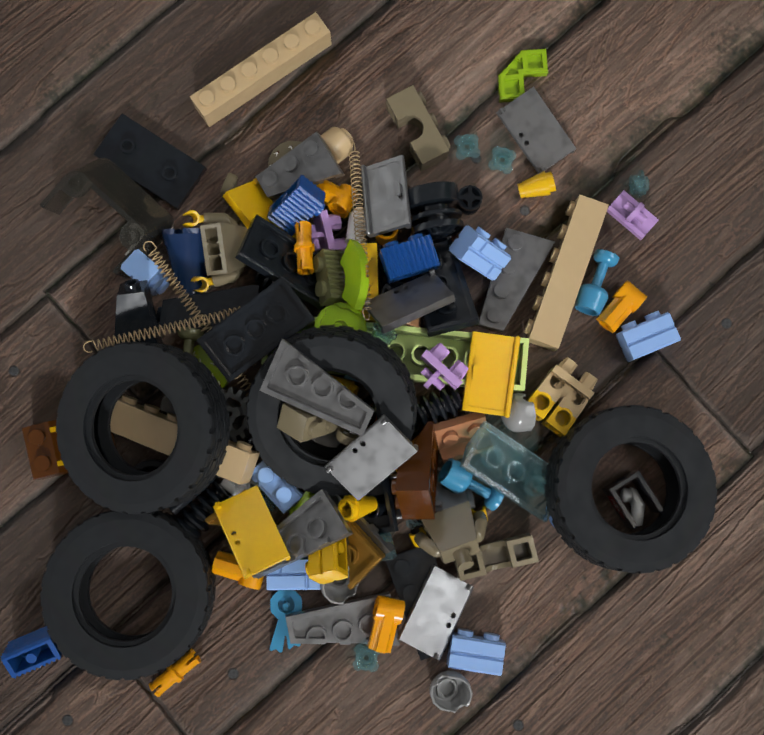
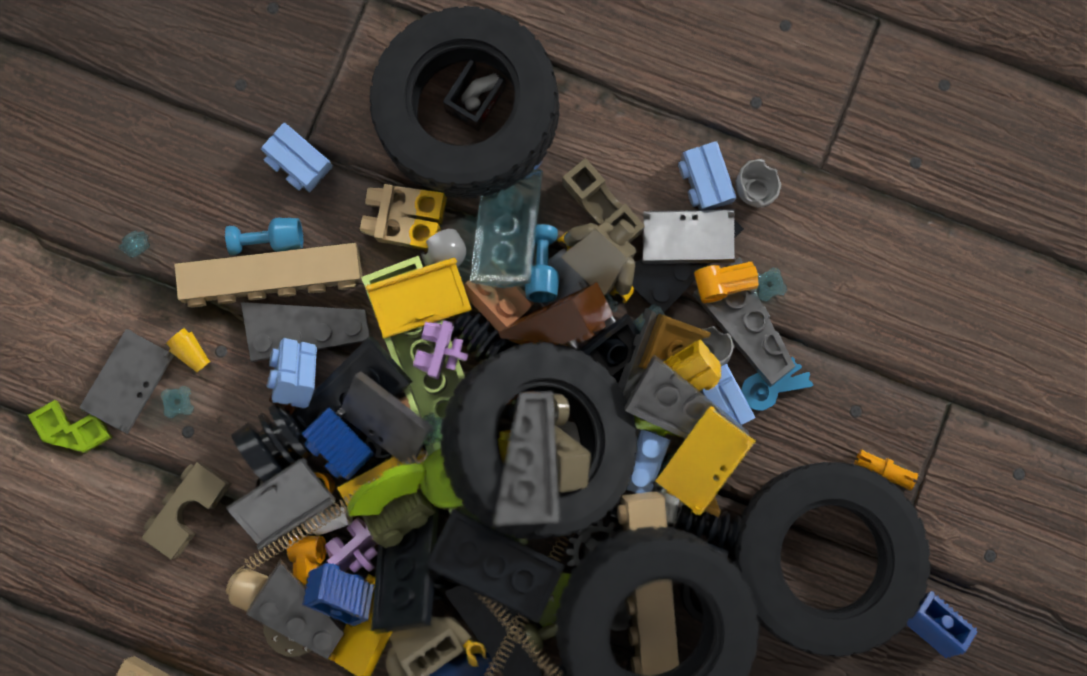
camera: 115 degrees left, 0 degrees up
(227, 566) = (751, 467): light orange piece -> none
(304, 248) = (381, 561): light orange pin -> none
(352, 509) = (624, 367): yellow cone -> none
(378, 455) = (564, 369): flat silver door -> none
(467, 139) = (189, 448): clear light blue plate -> none
(469, 194) = (234, 417): black wheel -> none
(625, 301) = (270, 198): light orange piece -> none
(632, 215) = (173, 234): lavender hips -> none

